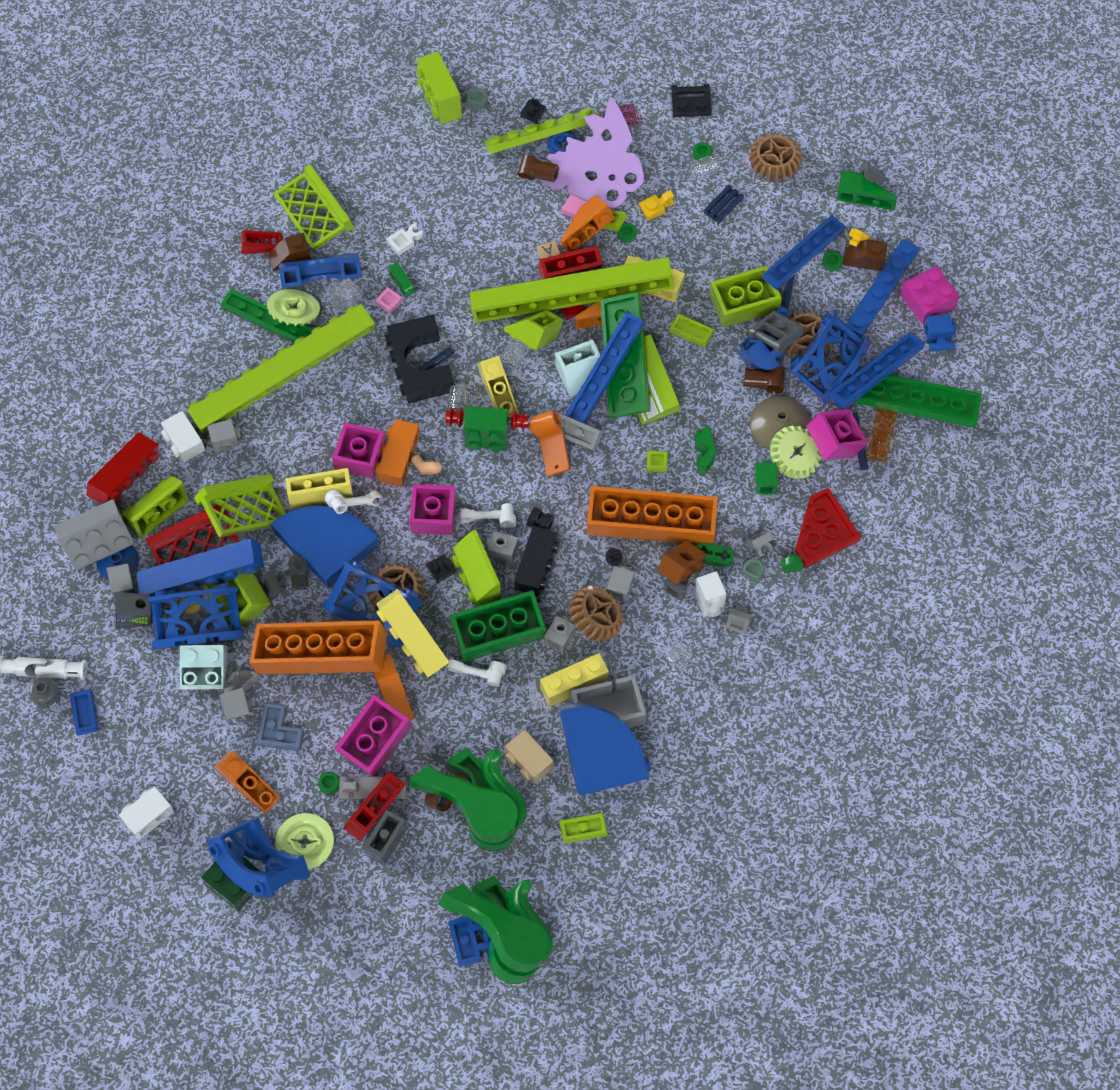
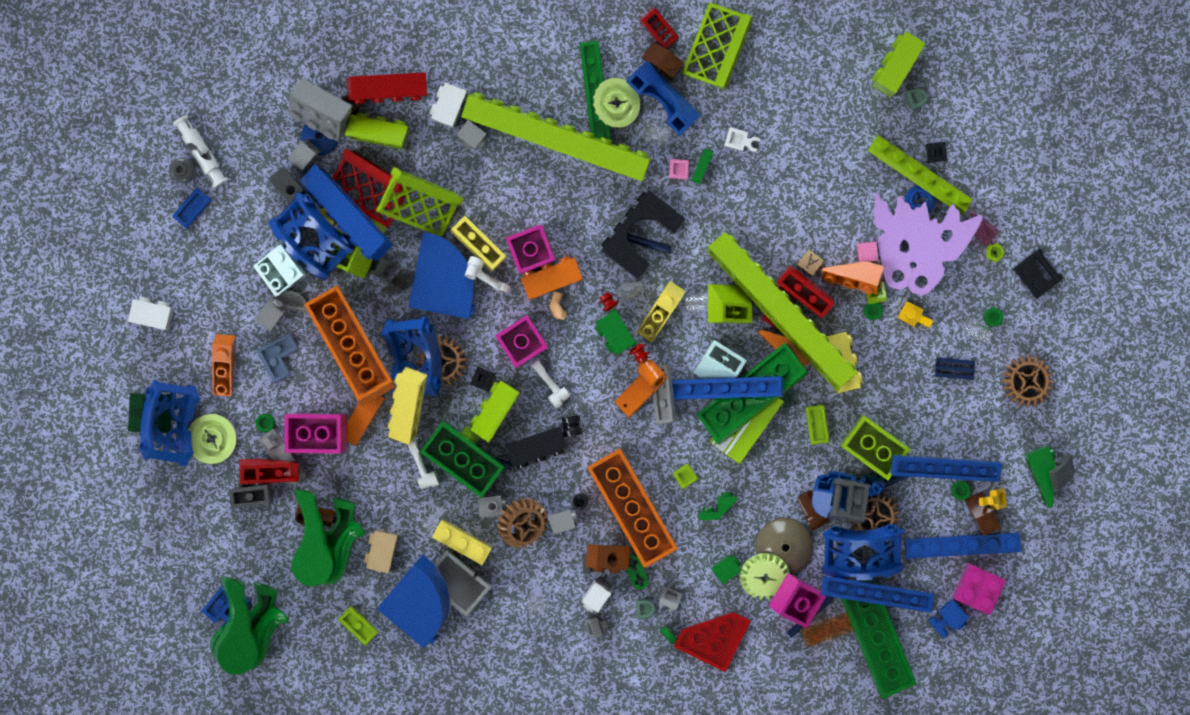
camera: 50 degrees right, 25 degrees up
(502, 547) = (529, 413): light grey brick -> none
(534, 168) = (877, 195): reddish brown piece -> none
(649, 114) = (999, 252): none -> lime plate

